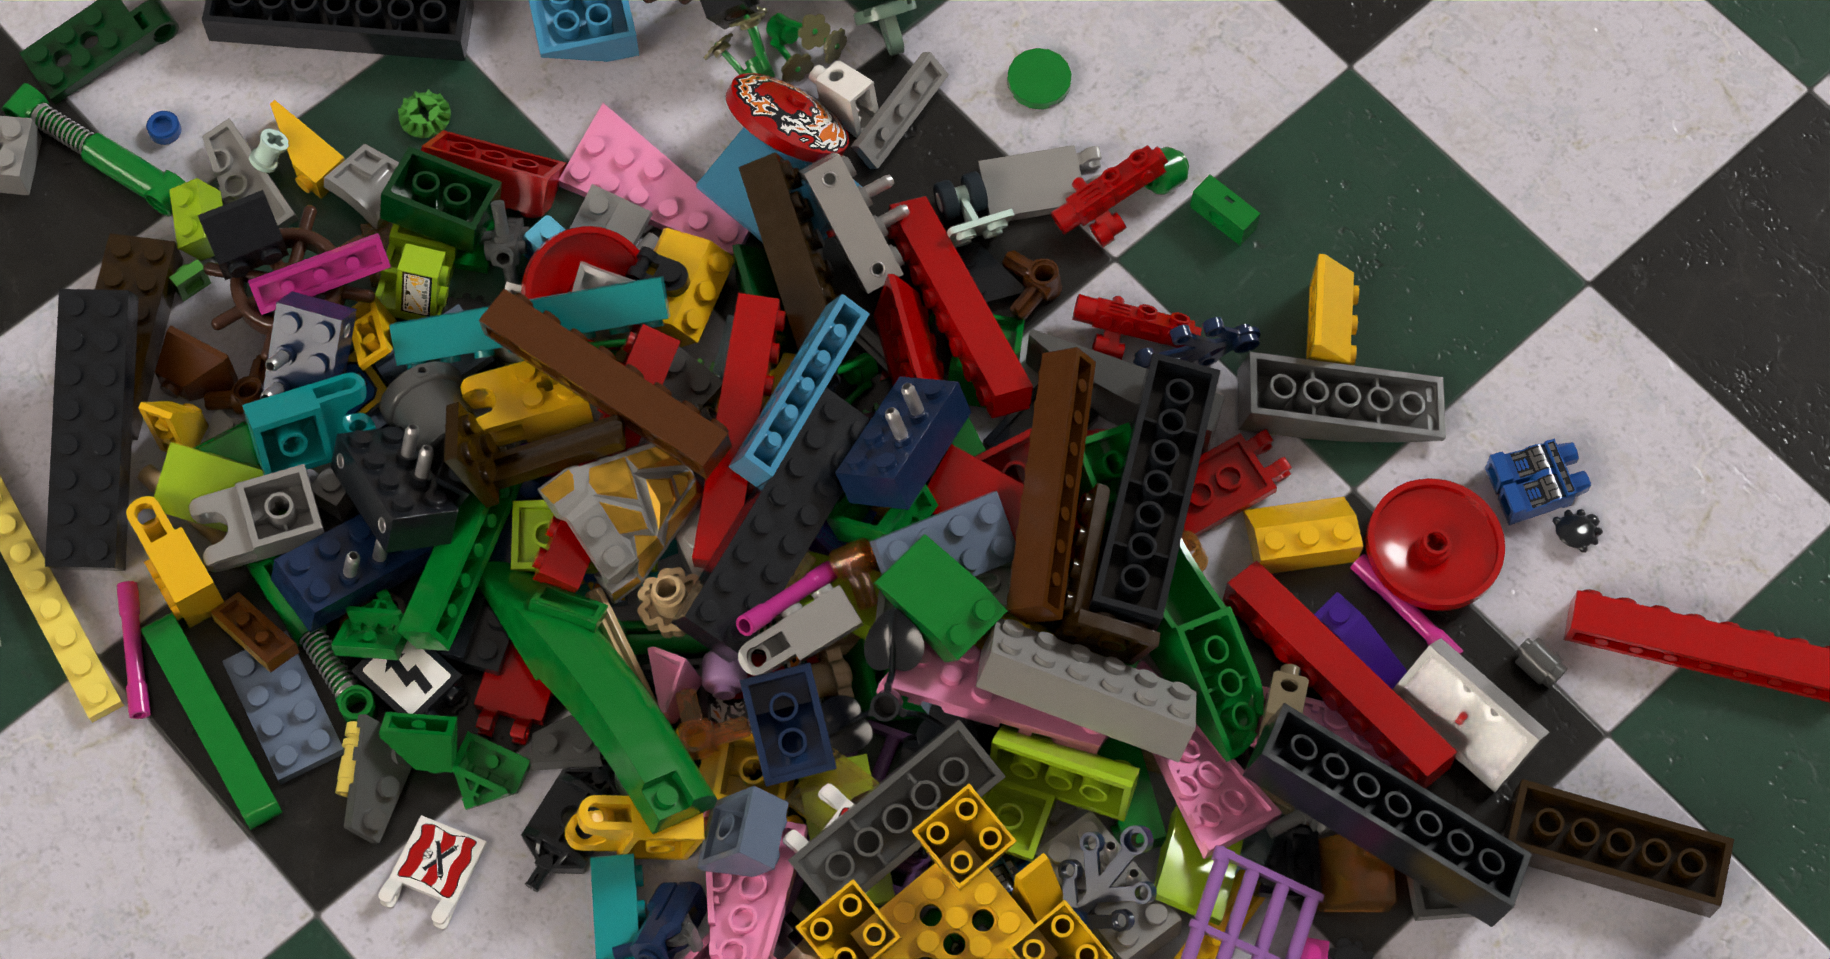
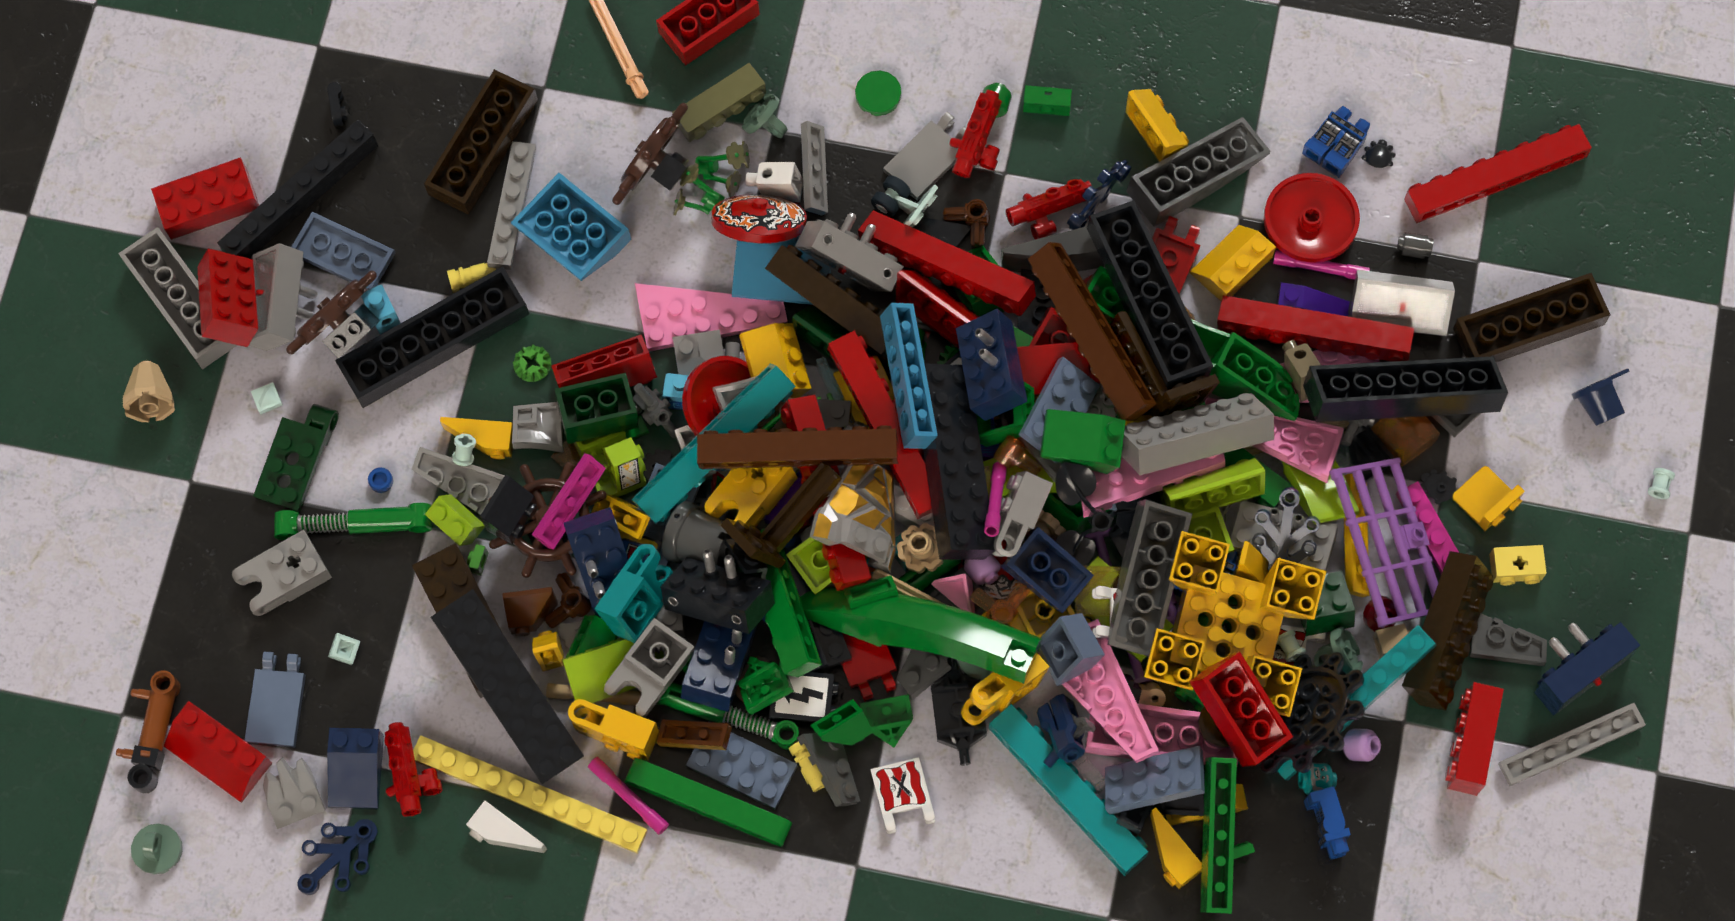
camera: 30 degrees left, 5 degrees up
(674, 273) = (764, 357): black plate -> none

